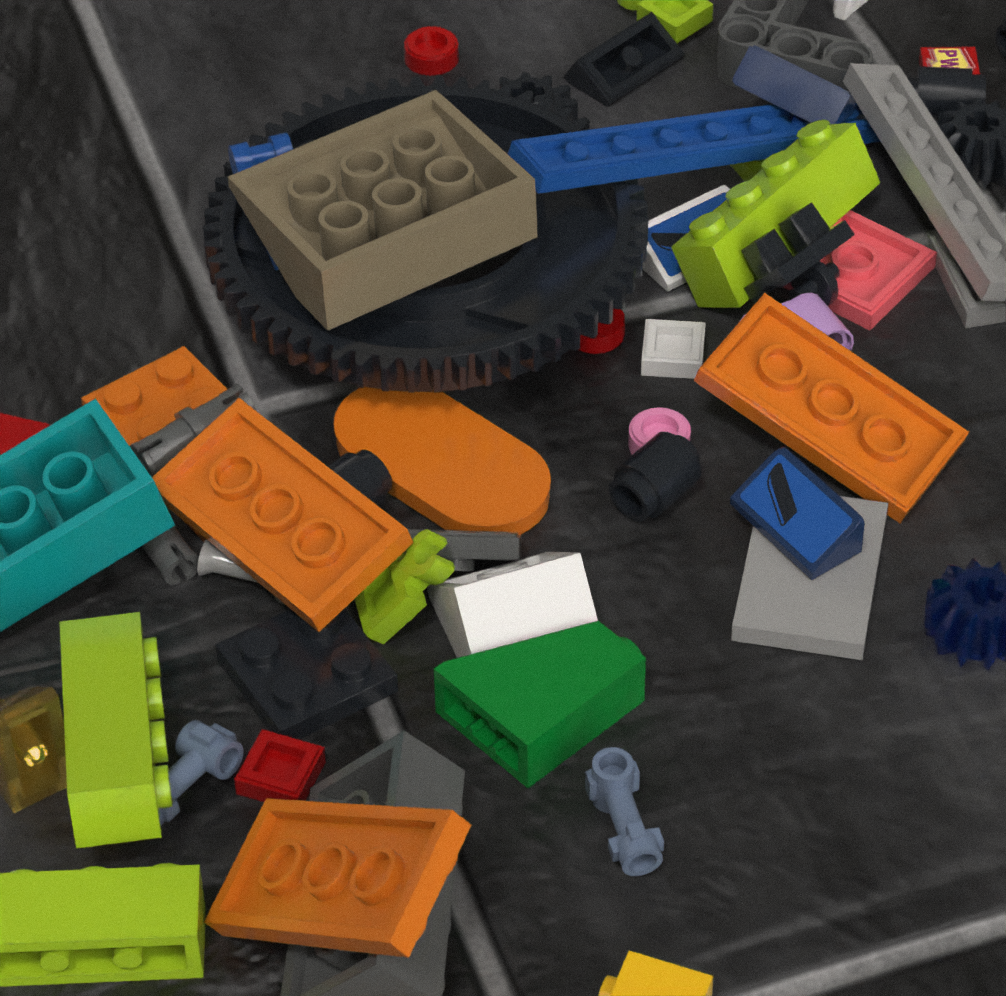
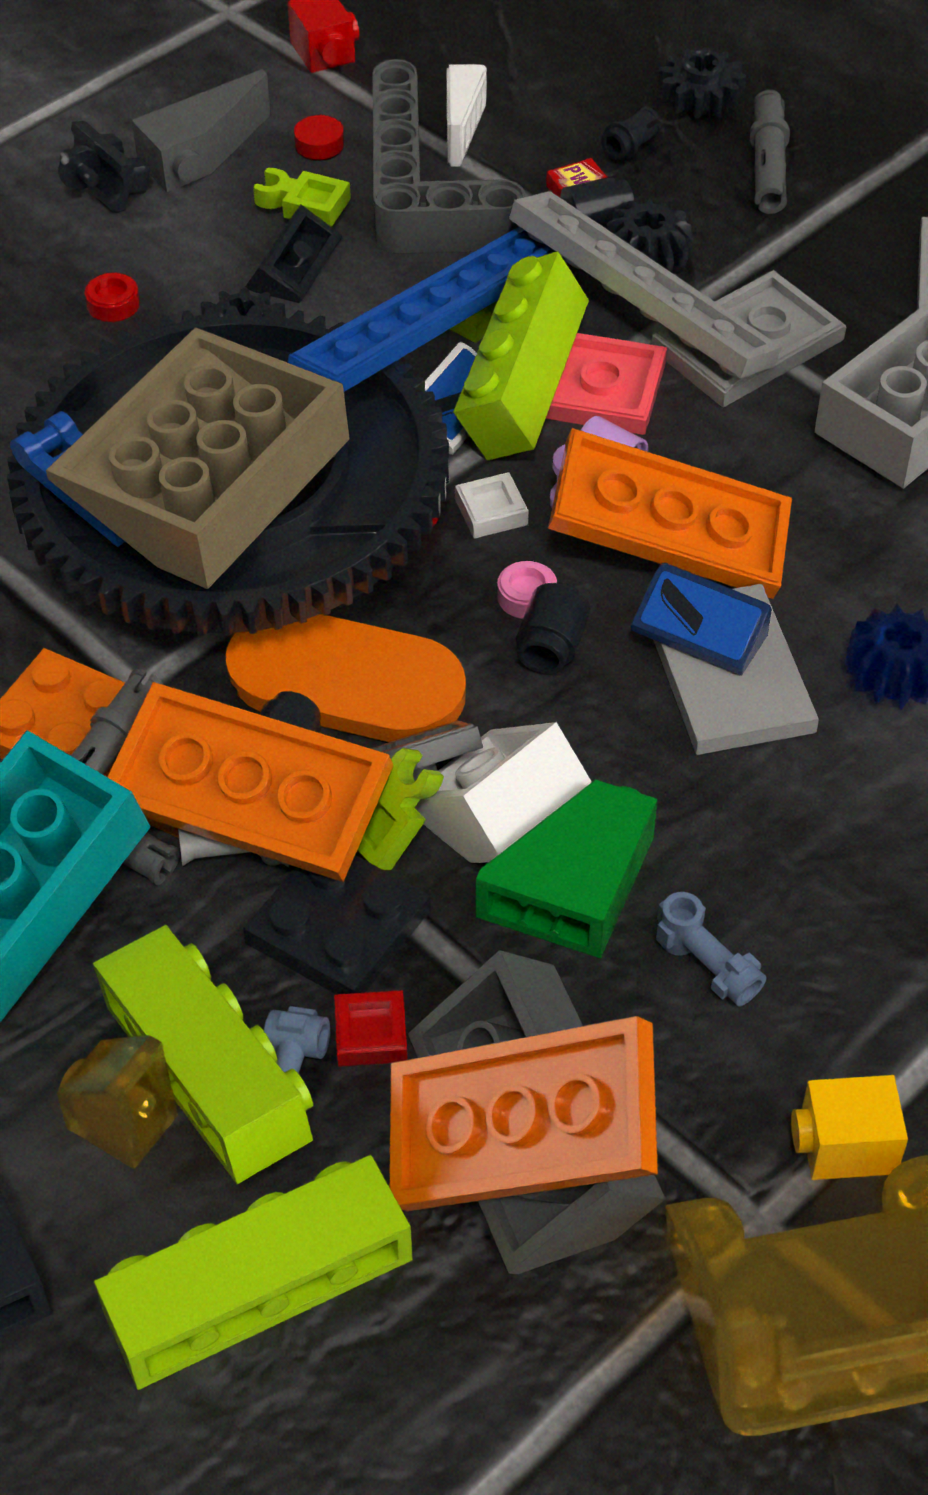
camera: 25 degrees left, 5 degrees up
(793, 88) = (479, 235): dark blue slope -> none
(812, 242) = (567, 386): black hips -> none

